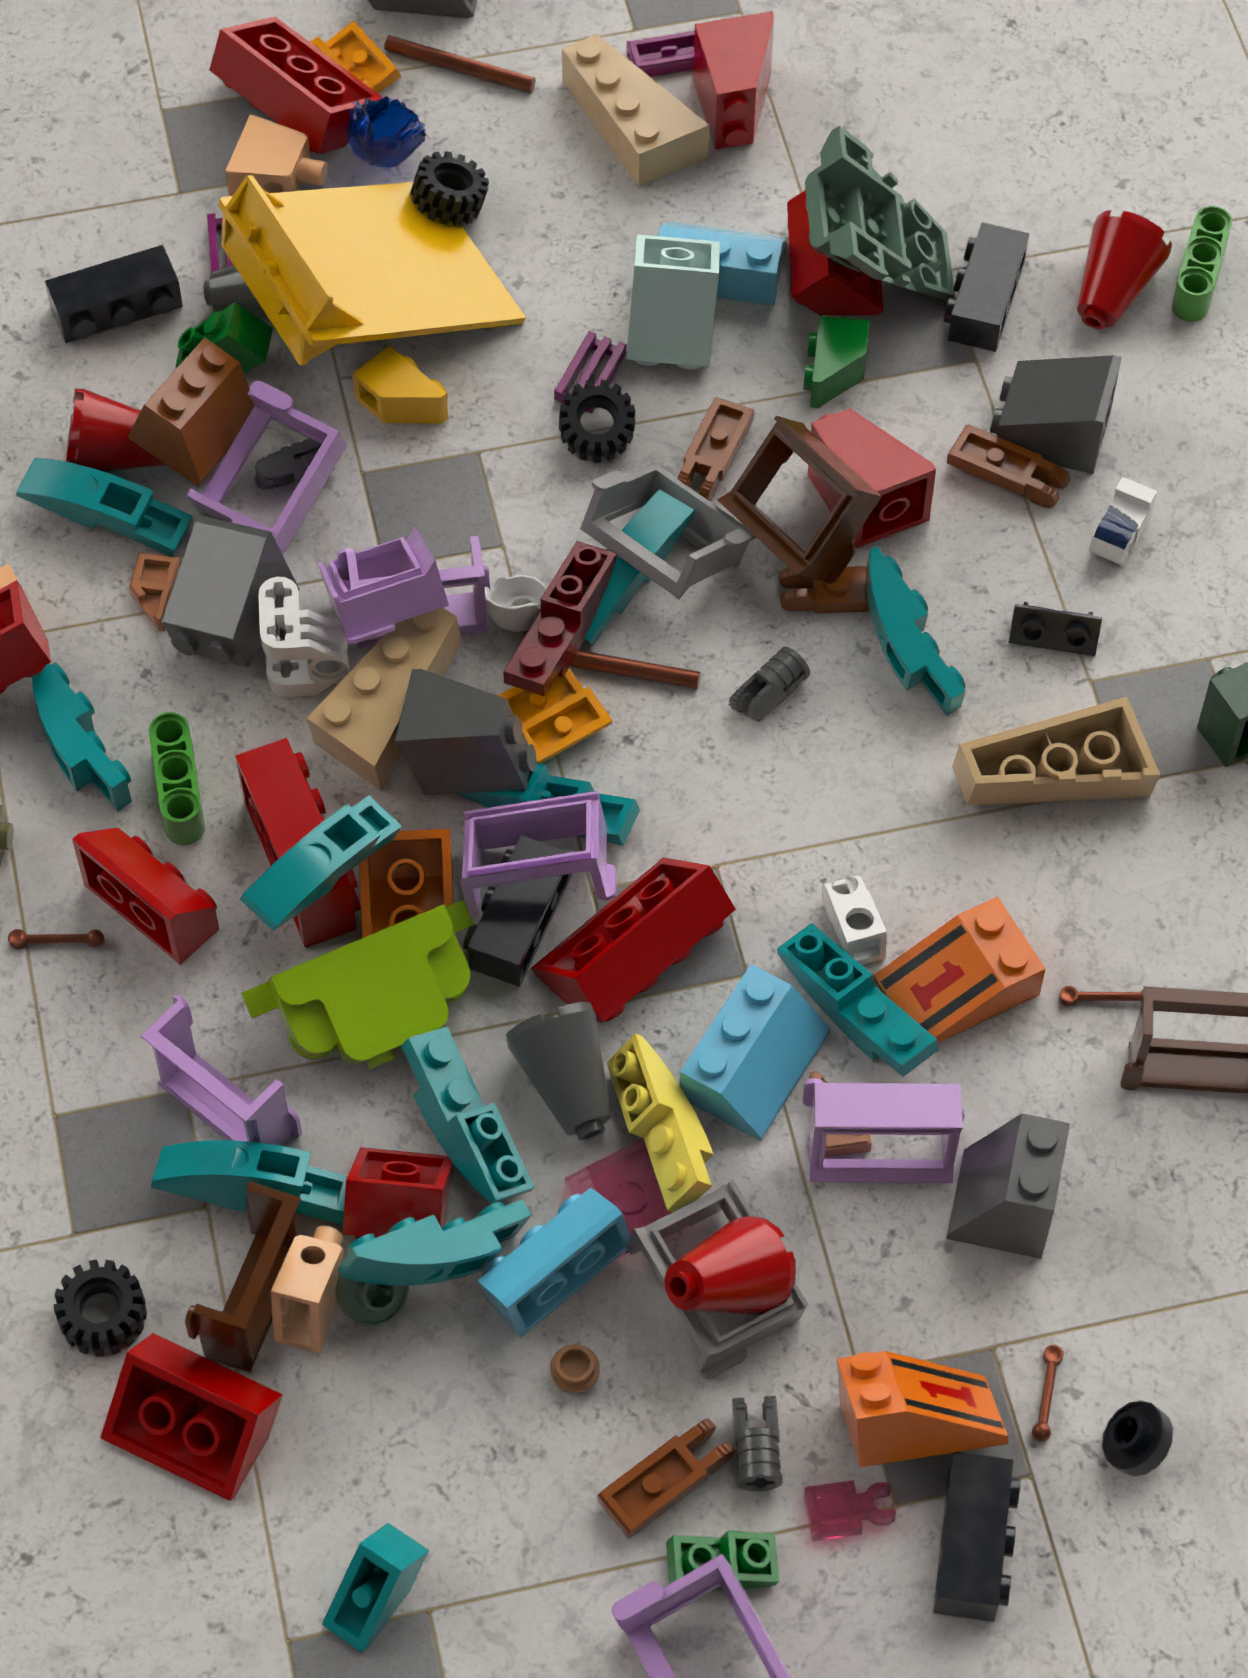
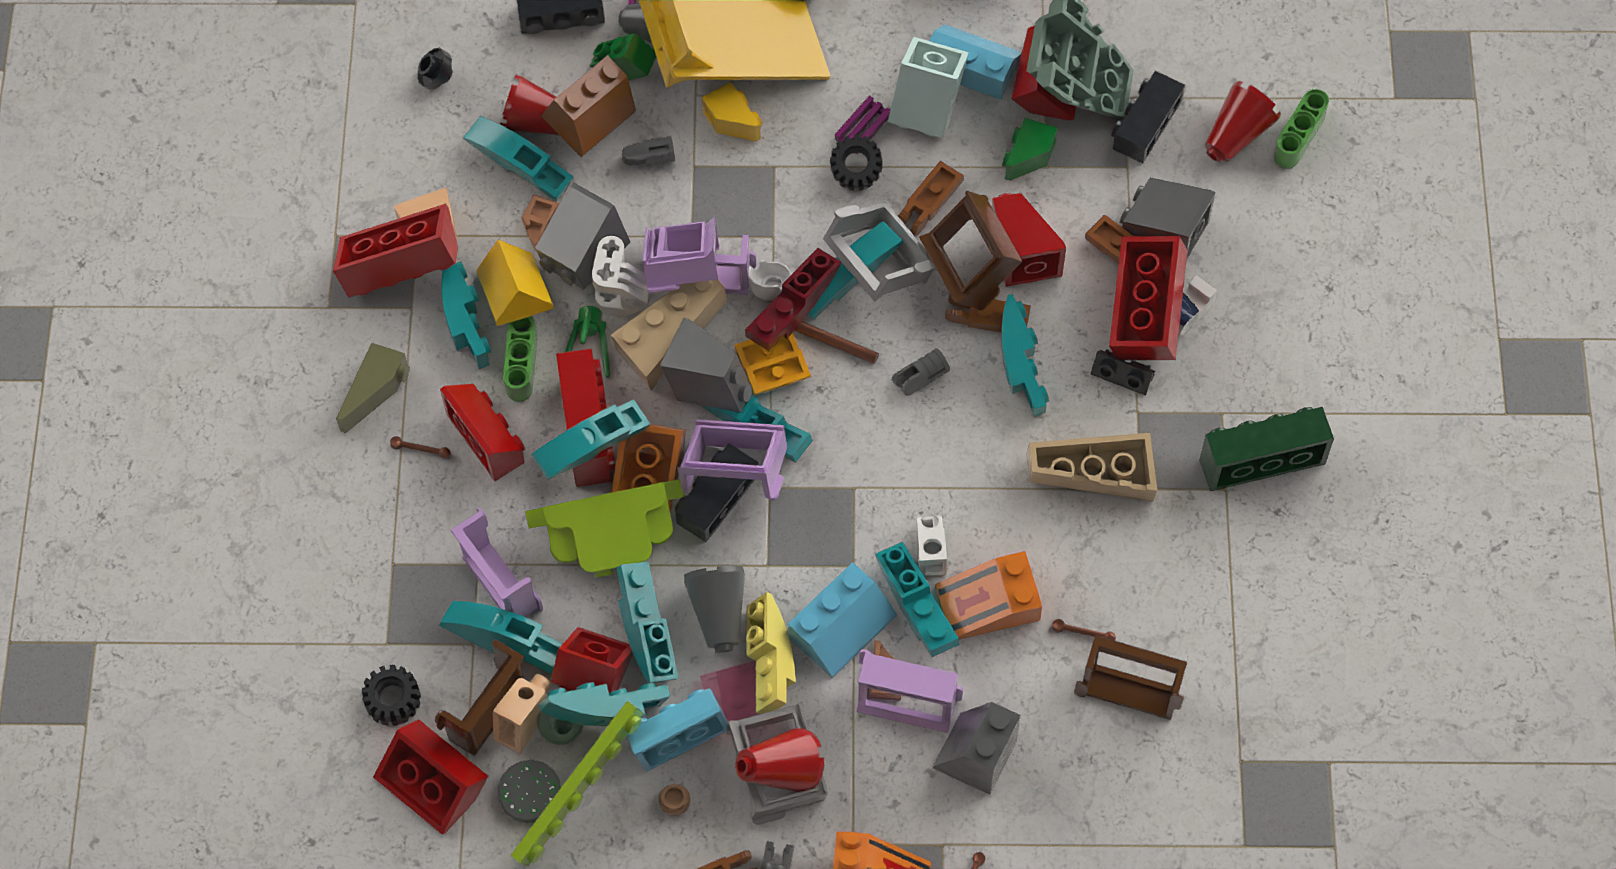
camera: 15 degrees right, 5 degrees up
(139, 678) = (512, 283): none -> yellow slope
(266, 715) = (588, 324): none -> green plant
(275, 405) = (638, 111): lavender piece -> none
(349, 1405) = (527, 790): none -> dark grey tile
(419, 1394) = (570, 794): none -> lime plate
(636, 937) = (786, 527): red slope -> none
(1068, 517) = (1148, 298): none -> red brick

